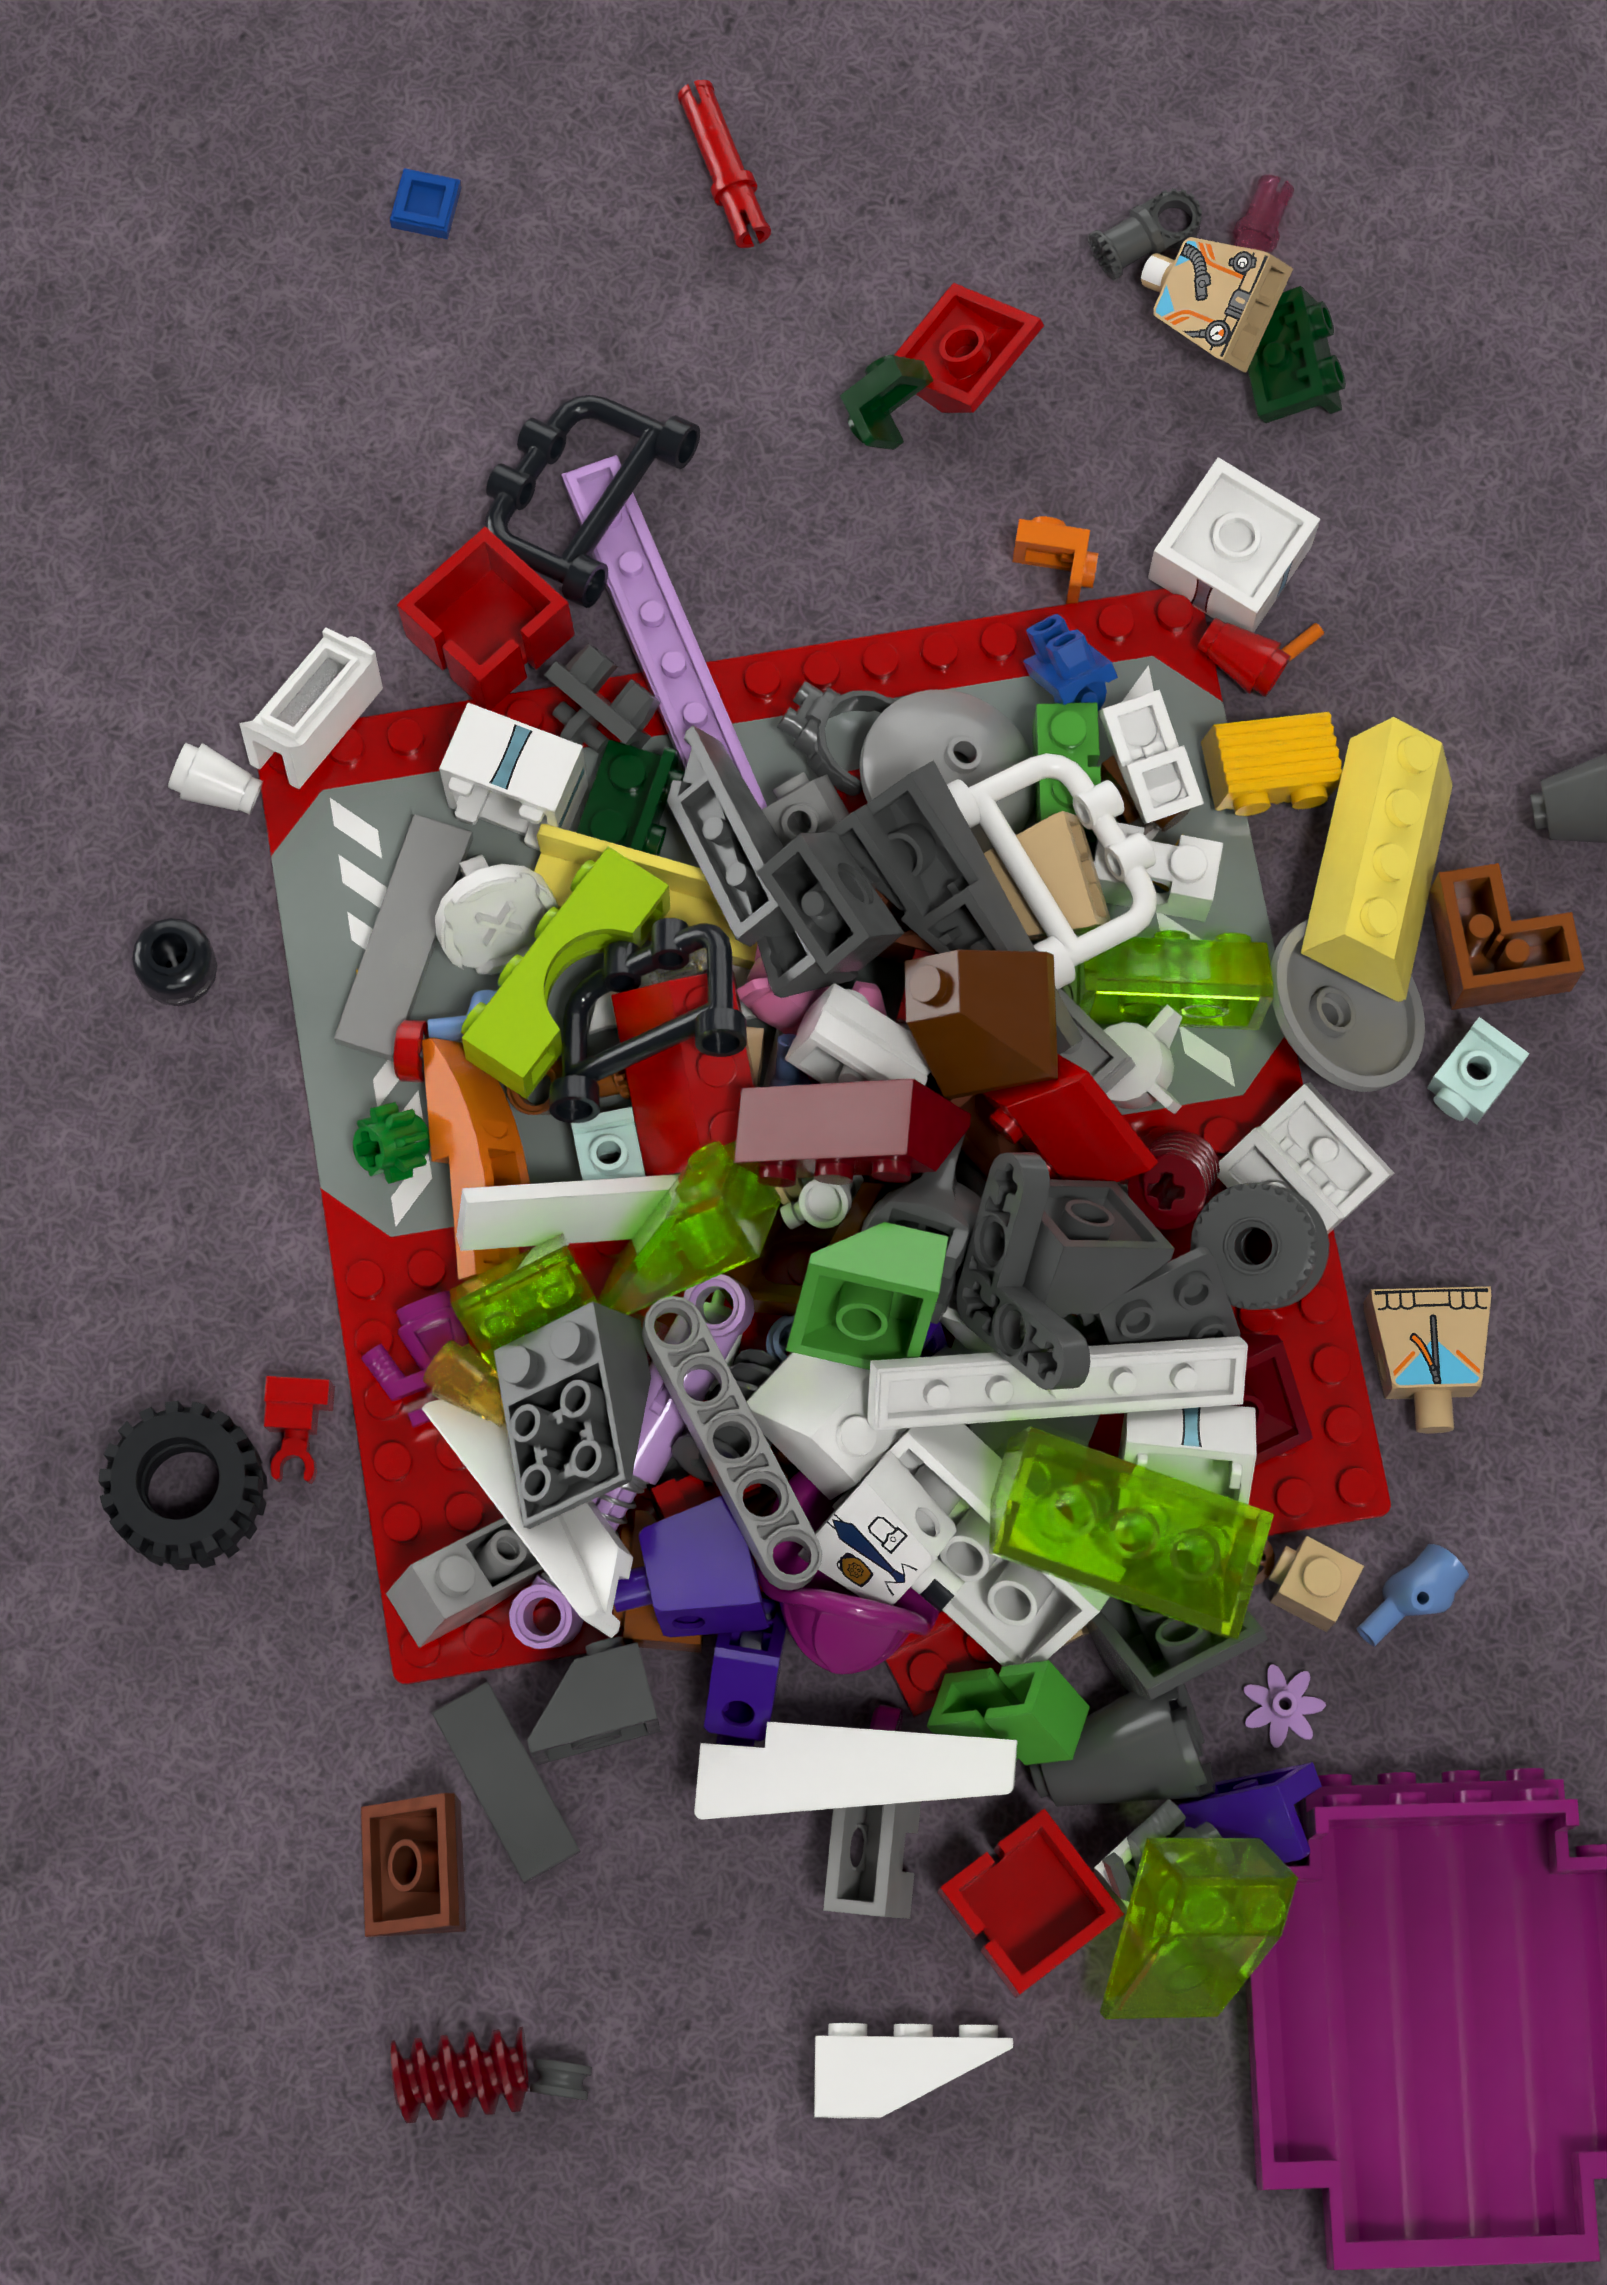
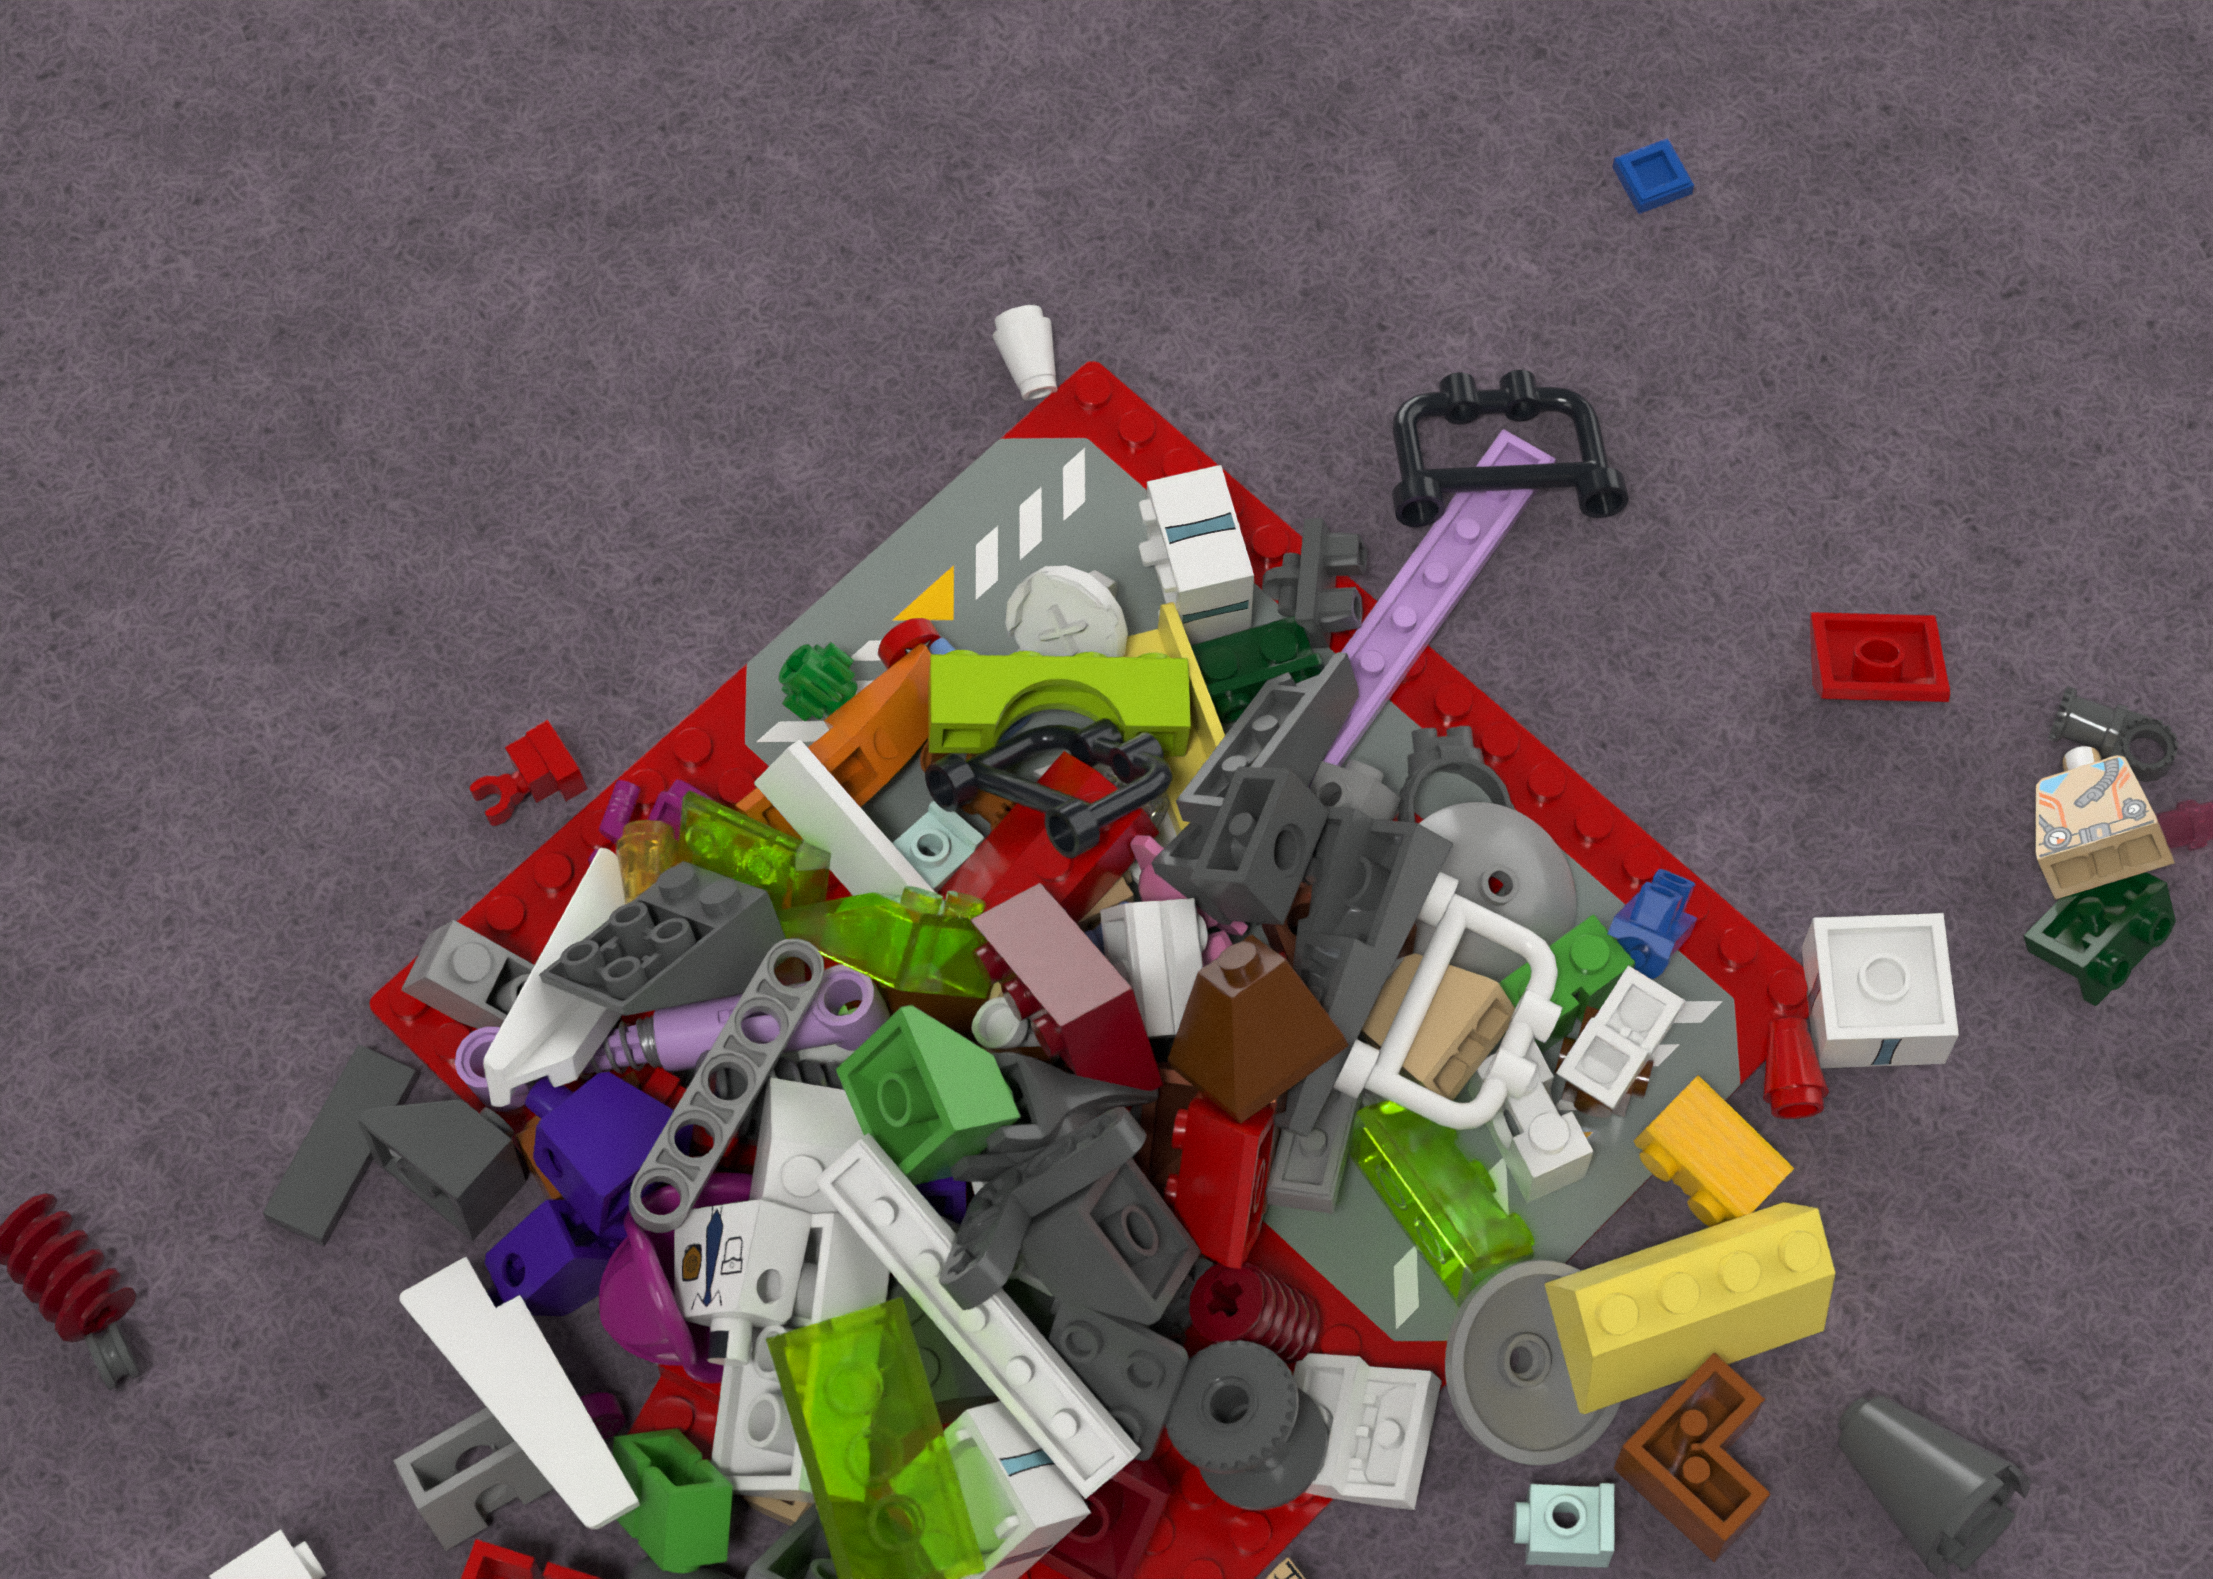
camera: 55 degrees right, 10 degrees down
(150, 1444) = (419, 768): black tyre -> none
(166, 945) = (848, 422): black head -> none
(315, 706) = (1144, 377): white window -> none
(402, 937) = (984, 581): light grey tile -> none
(413, 1866) = (220, 1122): copper slope -> none
(486, 618) = (1322, 449): red piece -> none
(732, 184) = (1869, 386): red pin -> none
(885, 388) = (1775, 619): dark green bracket -> none
(1054, 545) = (1764, 850): orange bracket -> none
(1153, 1062) = (1350, 1231): white piece -> none
(1303, 641) = (1849, 1115): orange piece -> none

